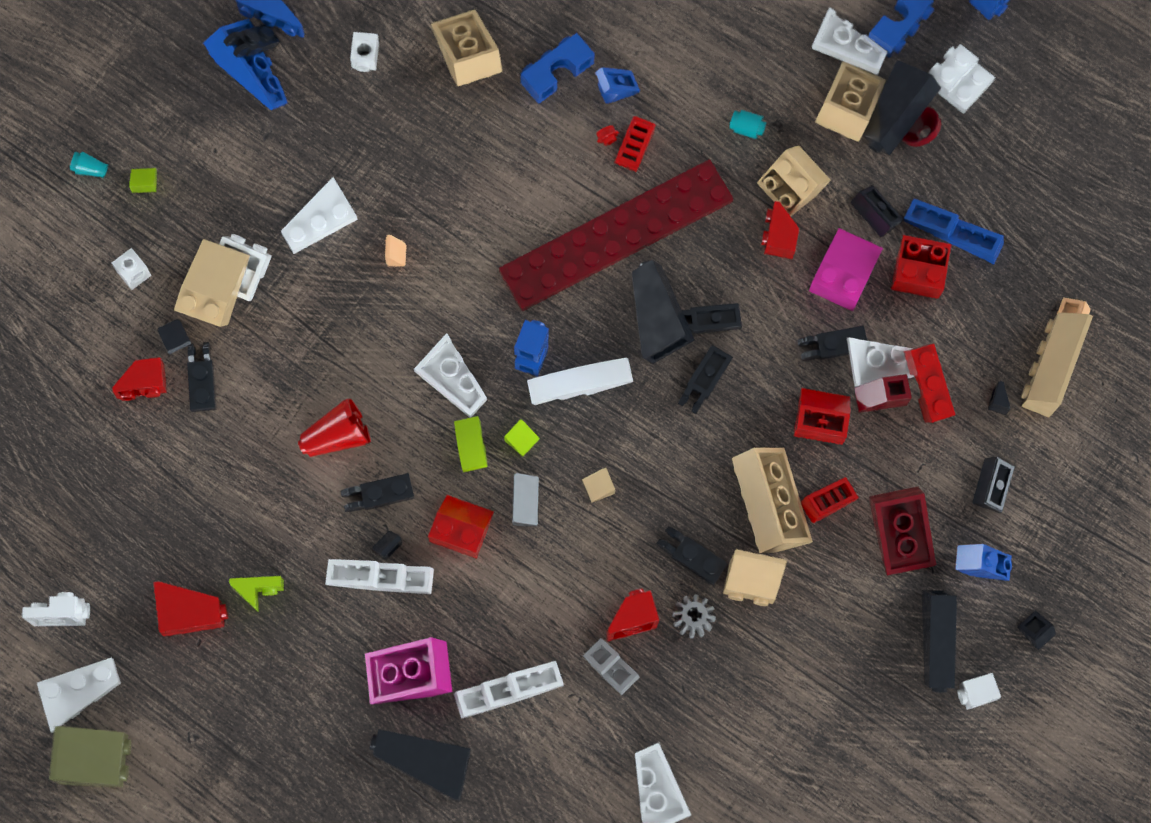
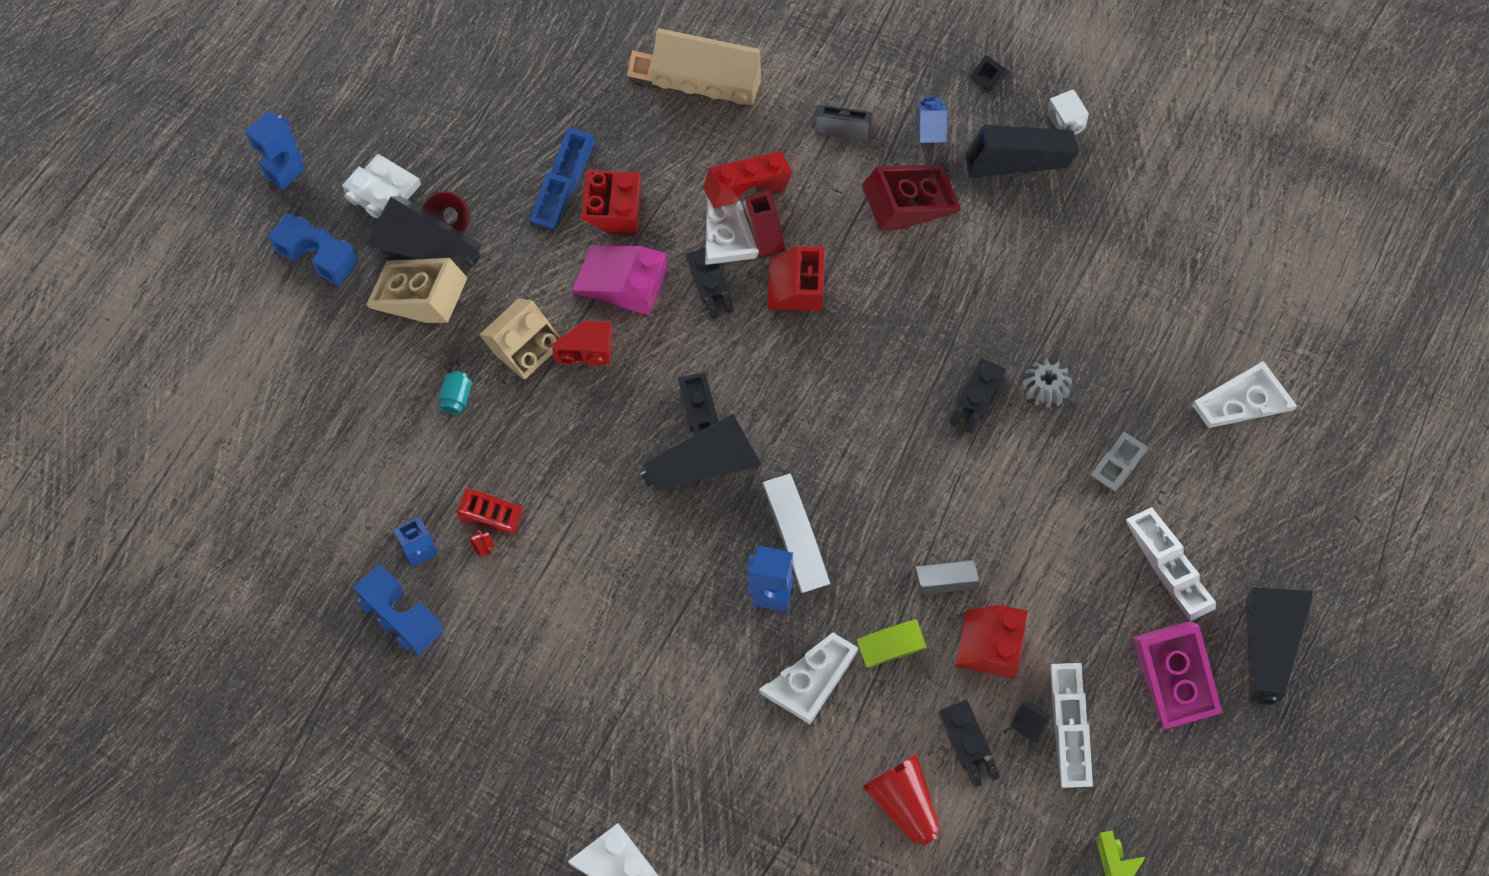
camera: 90 degrees left, 10 degrees down
(364, 42) = (379, 841): white brick -> none
(395, 251) = (660, 770): light nougat slope -> none
(467, 47) = (376, 720): tan slope -> none
(521, 438) = (873, 591): lime slope -> none
(599, 485) = (914, 499): tan slope -> none
(615, 235) = (609, 523): dark red plate -> none
(634, 616) = (1065, 438): red slope -> none
(706, 376) = (770, 403): black hinge -> none
(754, 577) = (998, 323): tan slope -> none
(771, 499) = (902, 322): tan slope -> none
(816, 508) = (899, 282): red slope -> none
(846, 44) = (346, 302): white wing -> none
(876, 210) = (547, 255): black slope -> none
(999, 400) = (750, 120): black slope -> none

